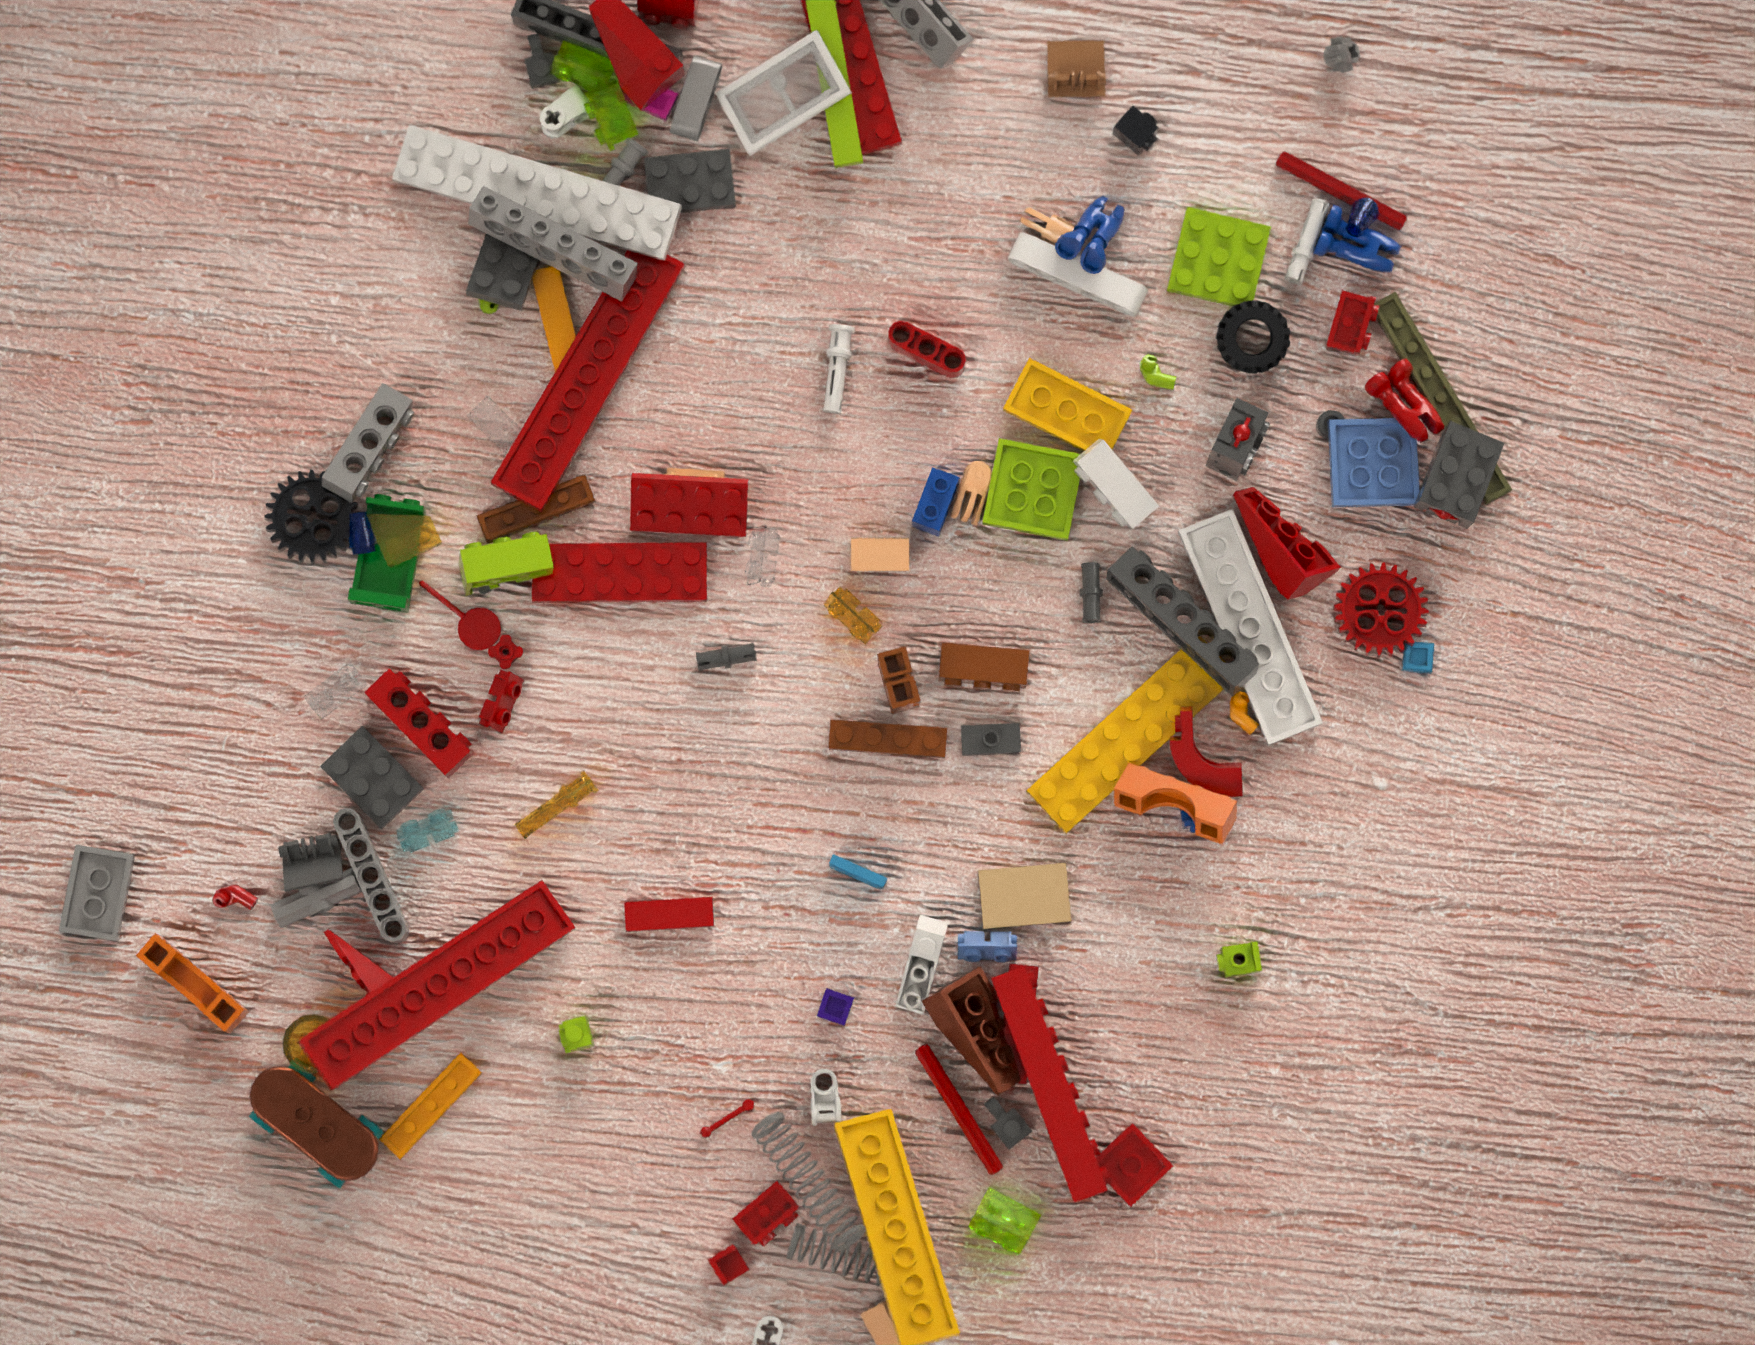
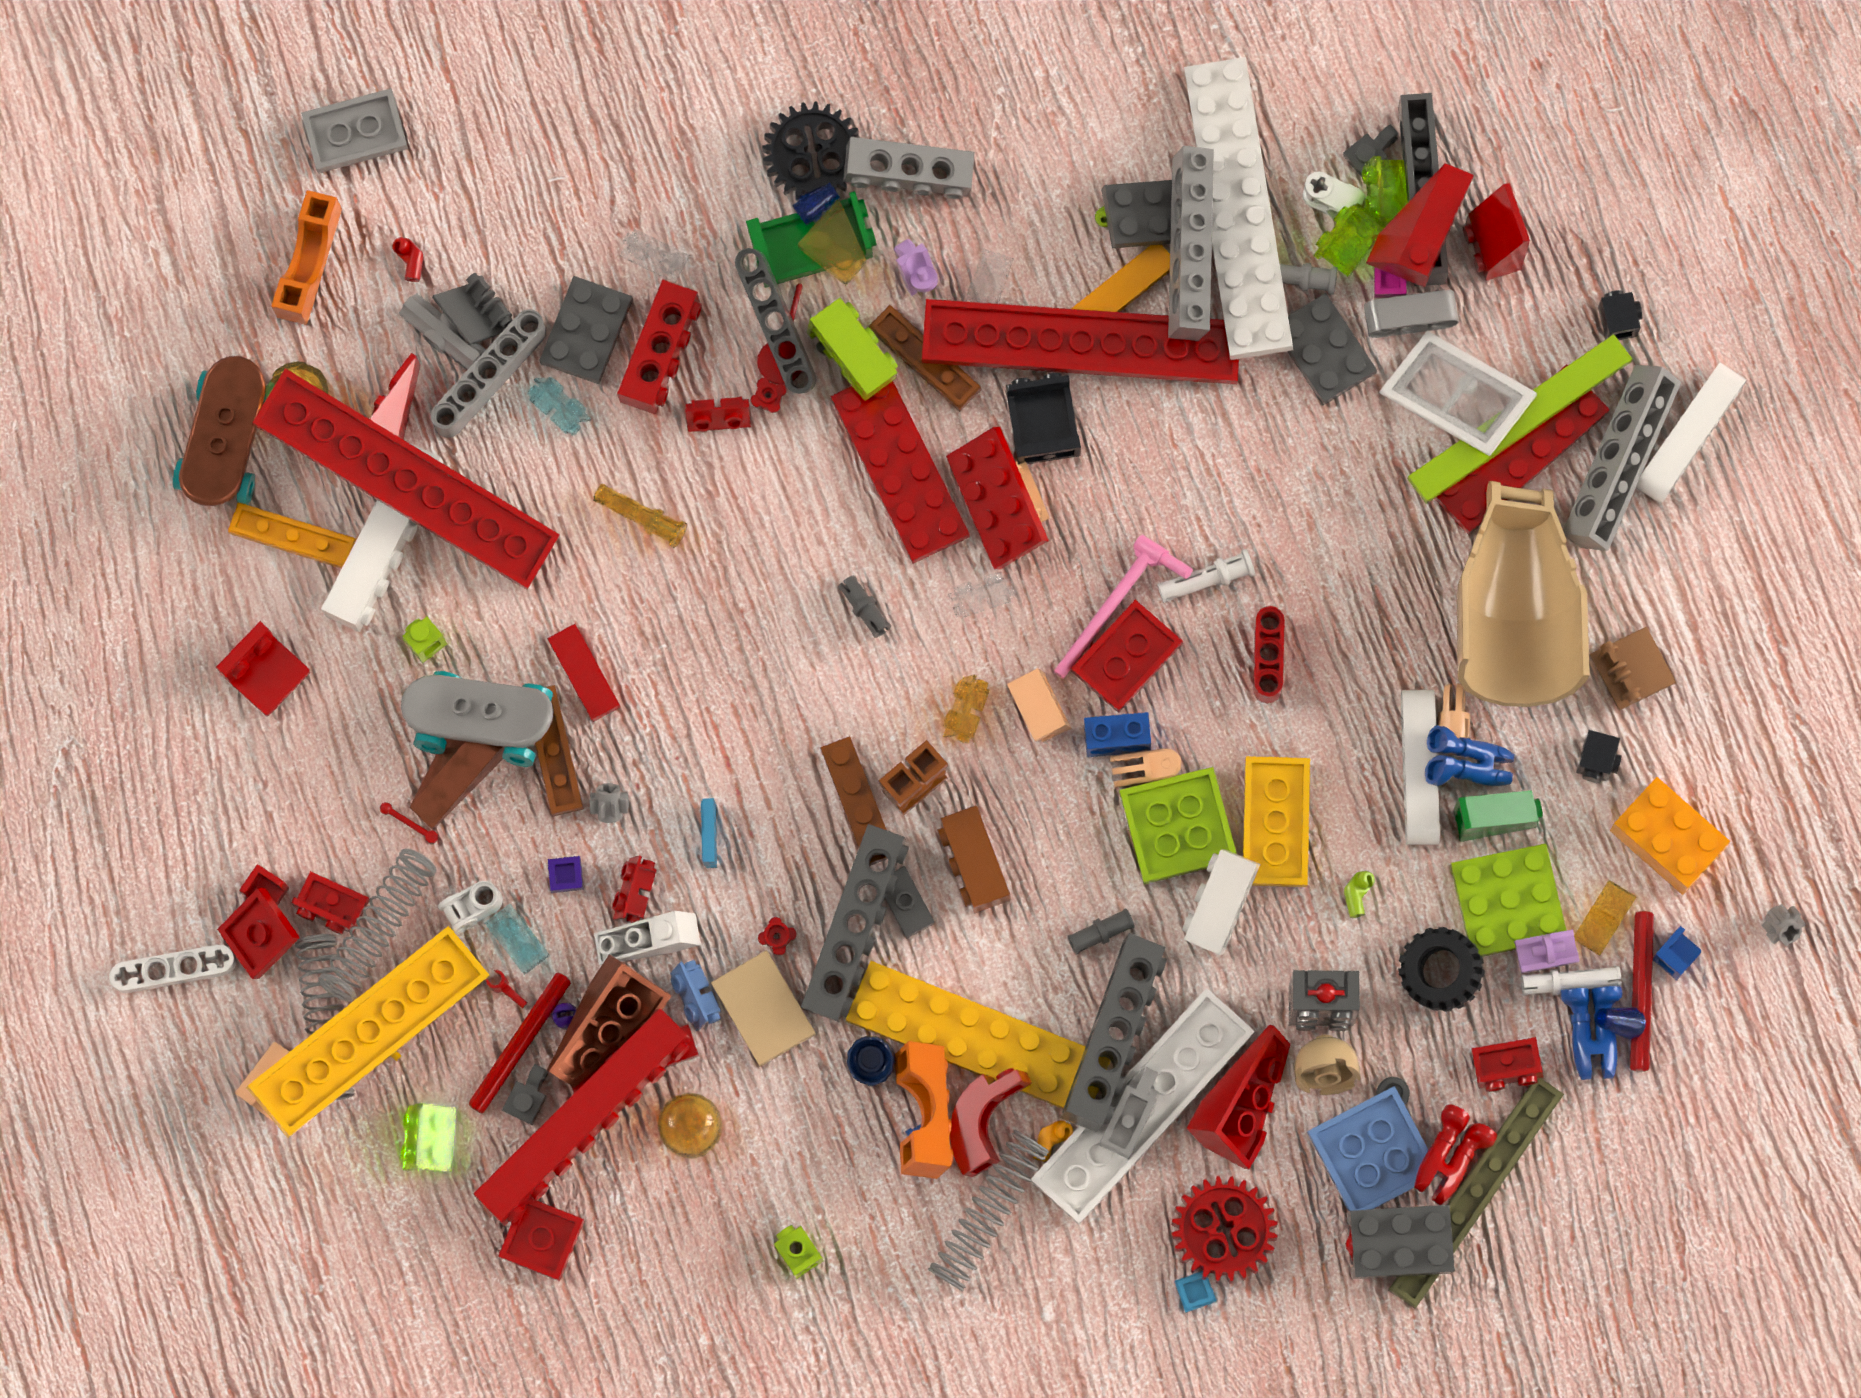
camera: 70 degrees right, 5 degrees down
(459, 477) = (915, 267): none -> lavender hips
(462, 614) = (763, 309): none -> dark grey beam
(489, 1051) = (369, 565): none -> white brick
(538, 1181) = (263, 669): none -> red bracket
(638, 437) = (1043, 419): none -> black panel
(668, 1014) = (477, 713): none -> light grey piece
(690, 1041) = (453, 778): none -> copper wedge
(725, 969) = (558, 765): none -> dark orange plate
(765, 1285) = (258, 933): none -> red plate
(793, 943) = (609, 803): none -> light grey gear
(794, 405) = (1147, 554): none -> bright pink bar
(864, 949) = (634, 877): none -> red hinge
(871, 1072) = (517, 939): none -> clear light blue plate
(872, 463) = (1127, 656): none -> red plate
(910, 1099) = (504, 987): none -> red hand
(934, 740) = (874, 842): none -> dark grey brick
(947, 1058) = (563, 1022): none -> dark purple hinge
(961, 855) = (786, 935): none -> red plate
(988, 126) = (1521, 605): none -> tan windscreen
(1093, 1000) = (690, 1125): none -> clear yellow cylinder
(1112, 827) = (871, 1060): none -> dark blue hair
(1147, 233) = (1496, 814): none -> slope
(1228, 106) = (1669, 835): none -> light orange brick
(1256, 637) = (1131, 1115): none -> light grey hinge
(1268, 191) = (1604, 917): none -> clear yellow slope
(1276, 248) = (1546, 951): none -> lavender hips
(1287, 464) = (1326, 1065): none -> tan cylinder
(1317, 847) = (1040, 1152): none -> light grey piece
(1324, 149) = (1677, 954): none -> blue panel

